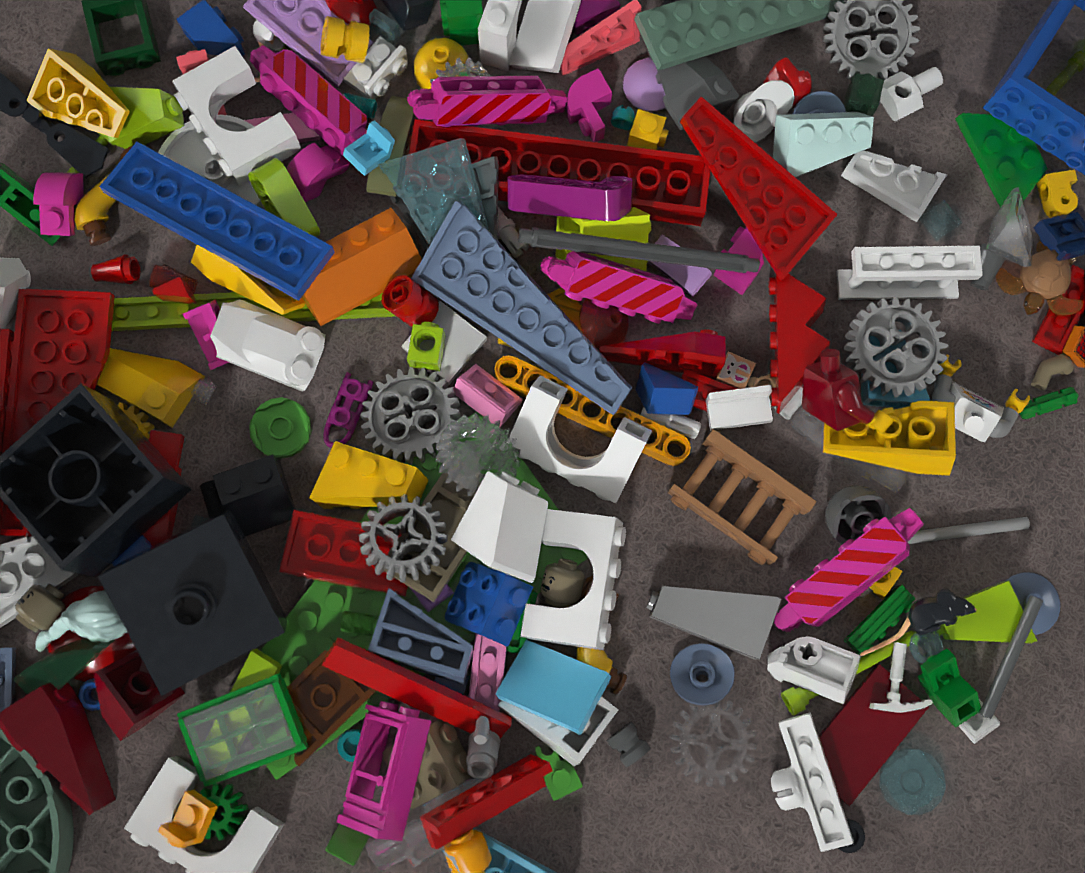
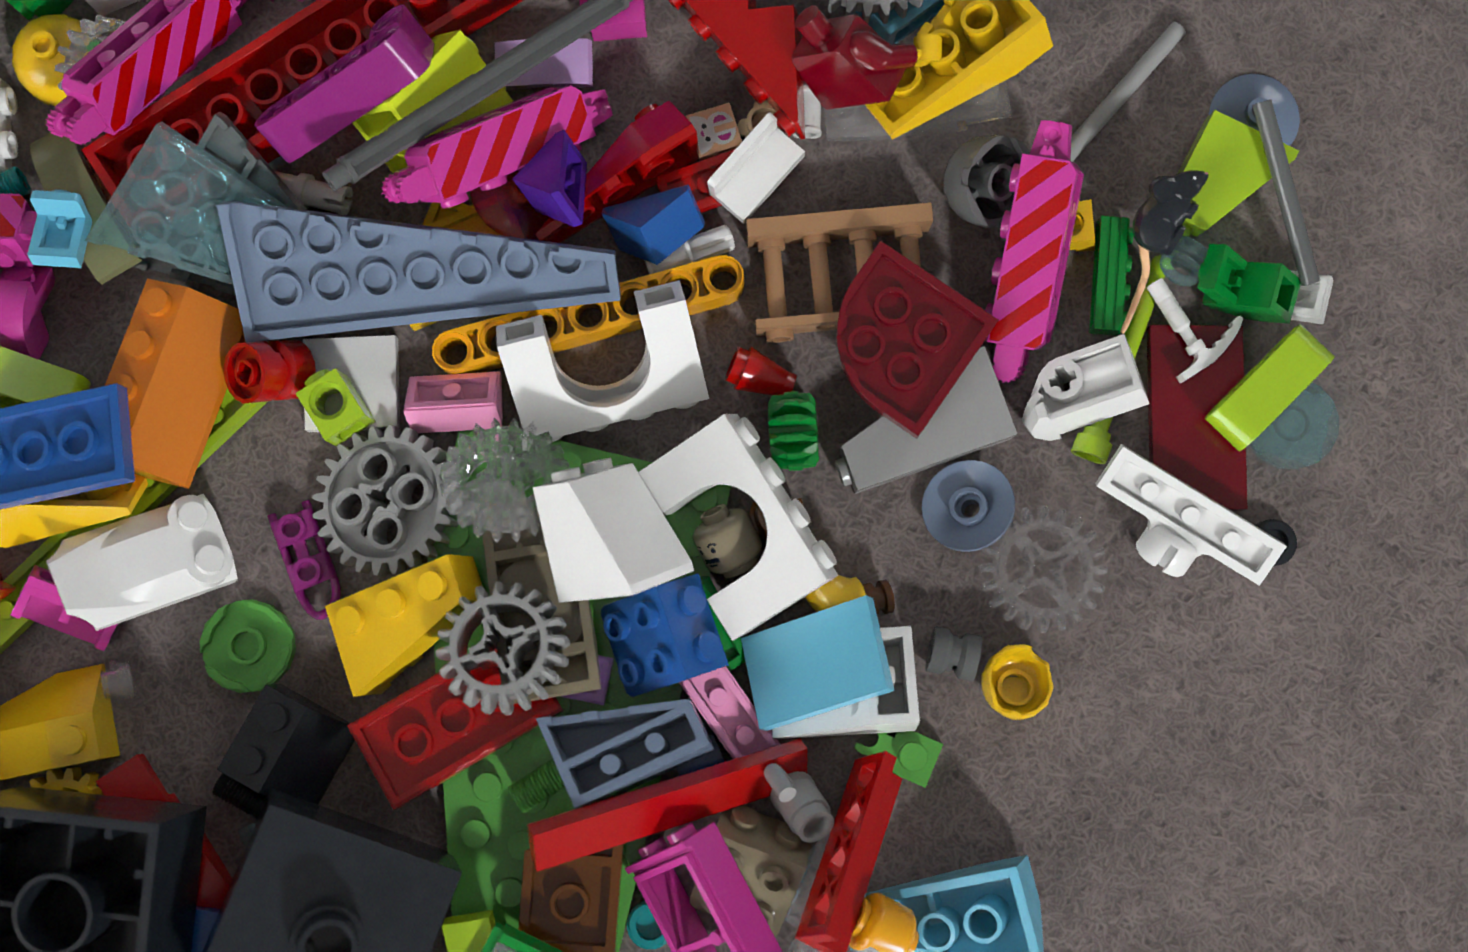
camera: 35 degrees left, 5 degrees up
(633, 328) = (556, 180): none -> dark purple slope
(641, 795) = (1020, 695): none -> yellow hair
(644, 556) = (793, 430): none -> green gear
(652, 513) = (758, 374): none -> red cone
(743, 559) = (906, 338): none -> dark red plate
(915, 751) = (1269, 387): none -> lime beam

